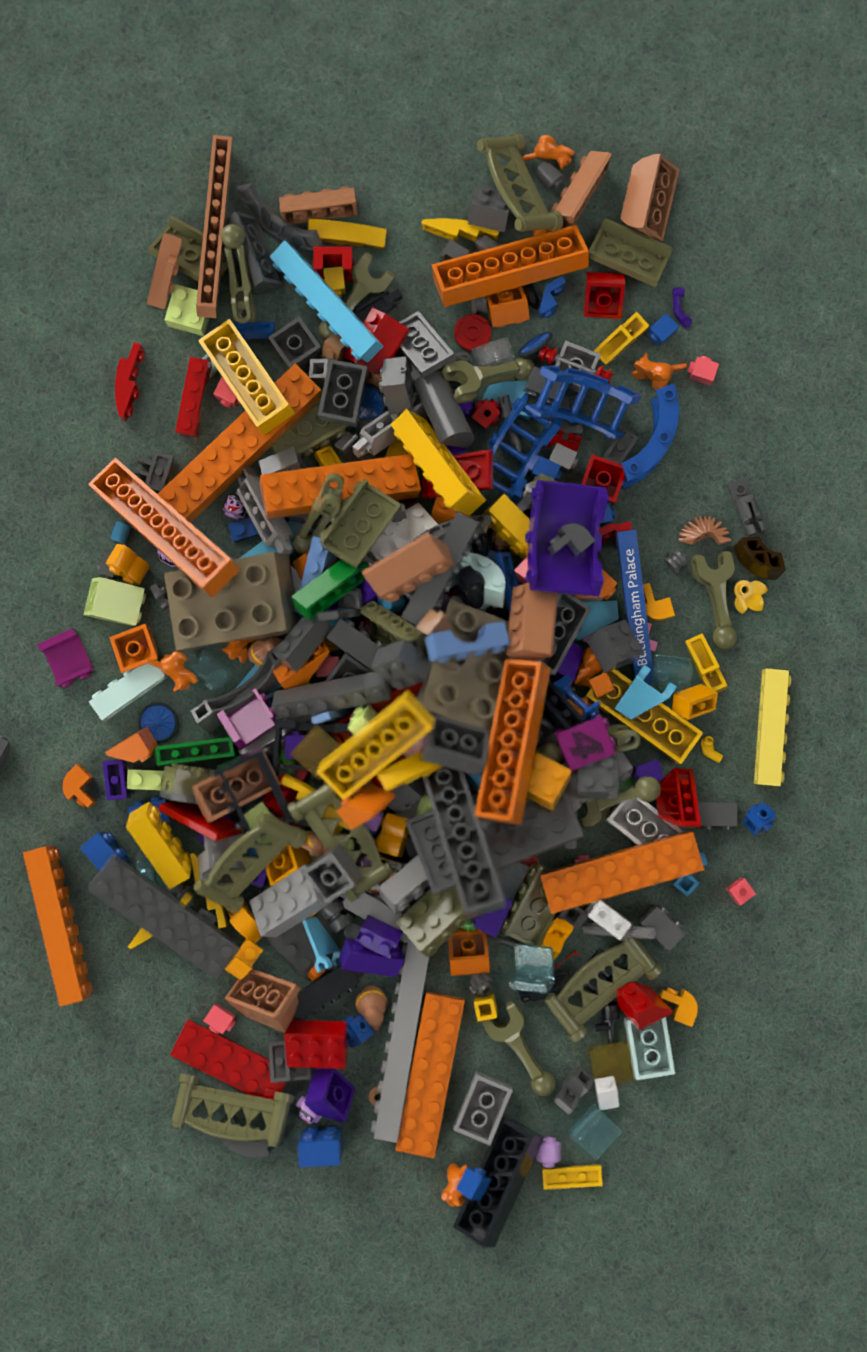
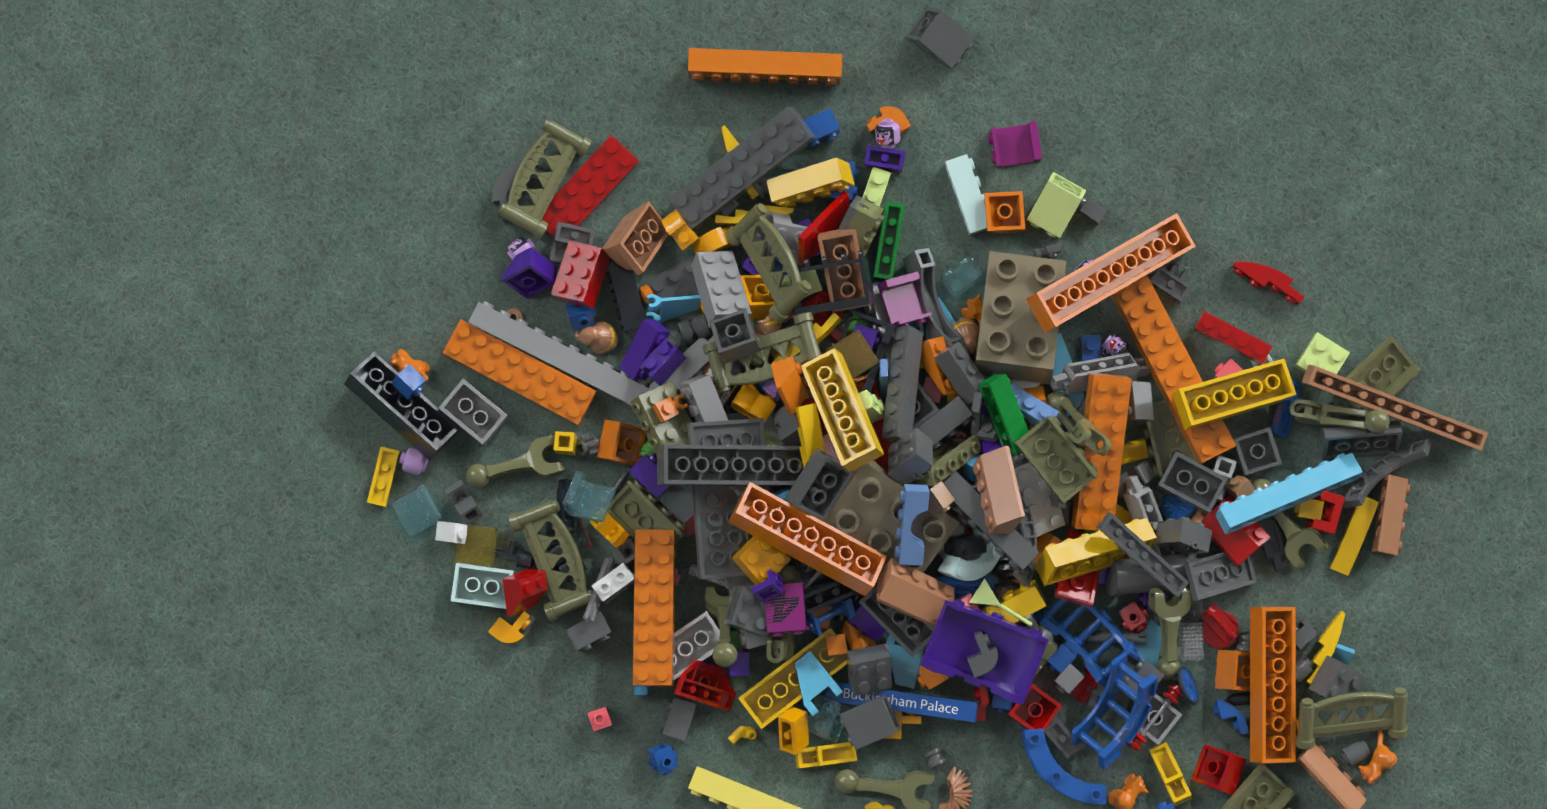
camera: 100 degrees right, 0 degrees up
(90, 784) = (887, 133): none -> lavender head
(120, 533) = (1121, 230): dark azure brick -> none
(127, 565) = (1087, 228): light orange brick -> none
(136, 747) = (910, 185): orange slope -> none
(160, 720) = (928, 213): blue wheel -> none
(164, 271) = (1364, 346): nougat bracket -> none
(174, 667) = (976, 244): orange animal -> none
(220, 1019) = (630, 191): coral brick -> none
(320, 1146) = (486, 251): blue brick -> none
(423, 917) = (668, 408): none -> orange plate
(427, 415) = (1142, 554): none -> dark grey plate
(460, 211) = (1343, 653): none -> medium azure slope
(467, 332) = (1220, 623): none -> red hinge
(512, 554) = (985, 596): none -> yellowish green piece
(573, 764) = (769, 588): none -> dark purple bracket
(664, 630) = (870, 722): none -> dark grey brick
(686, 884) = (622, 669): dark azure brick -> none

